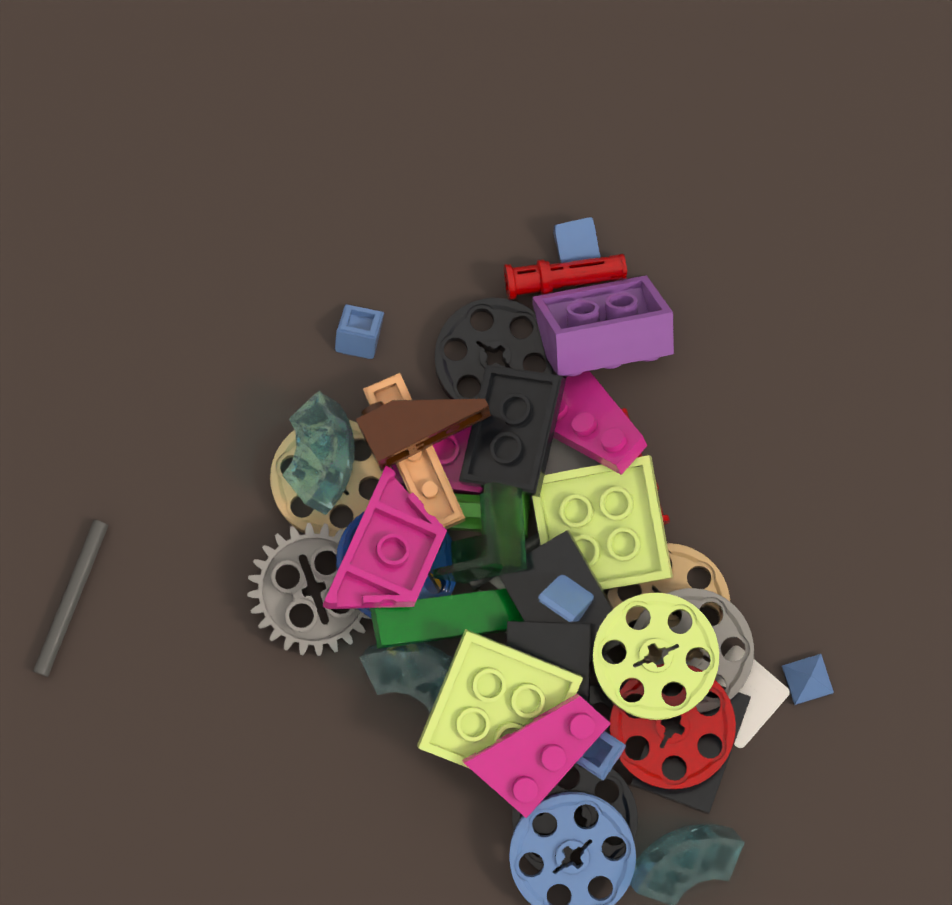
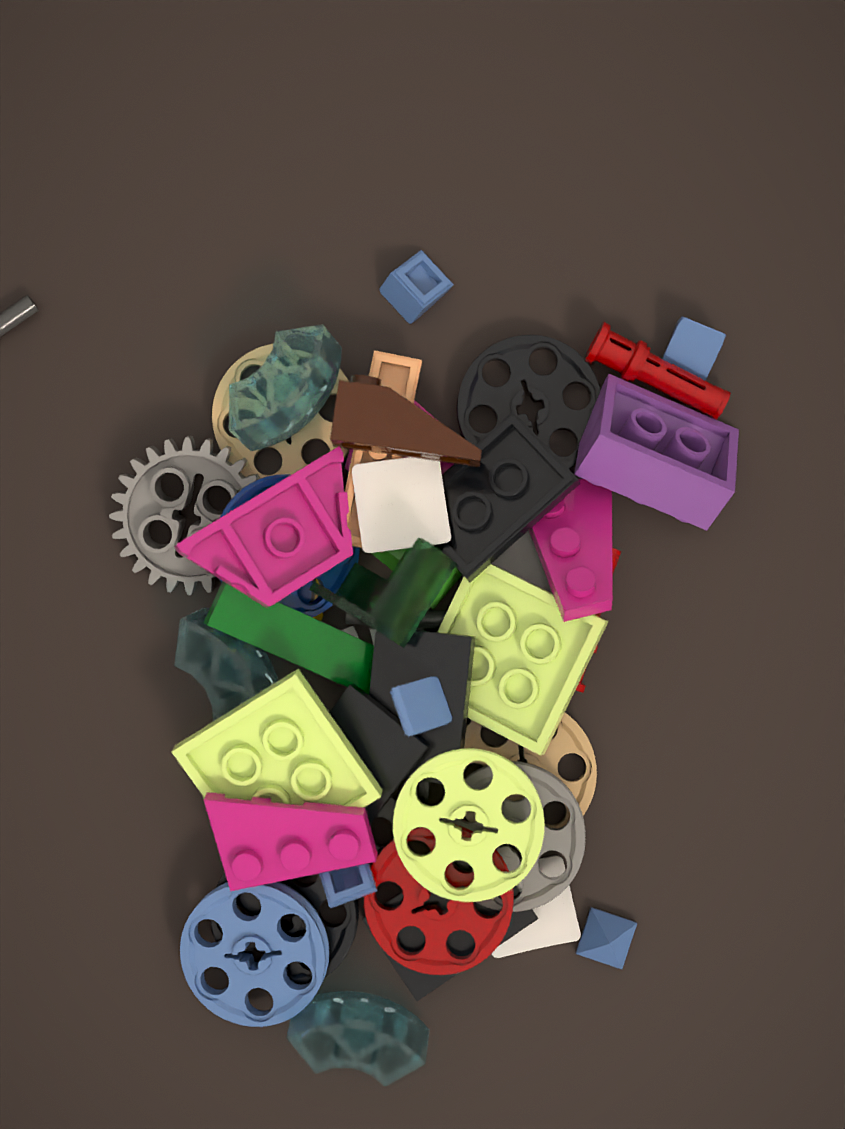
camera: 35 degrees right, 10 degrees up
(453, 476) = (400, 503): none -> white sticker

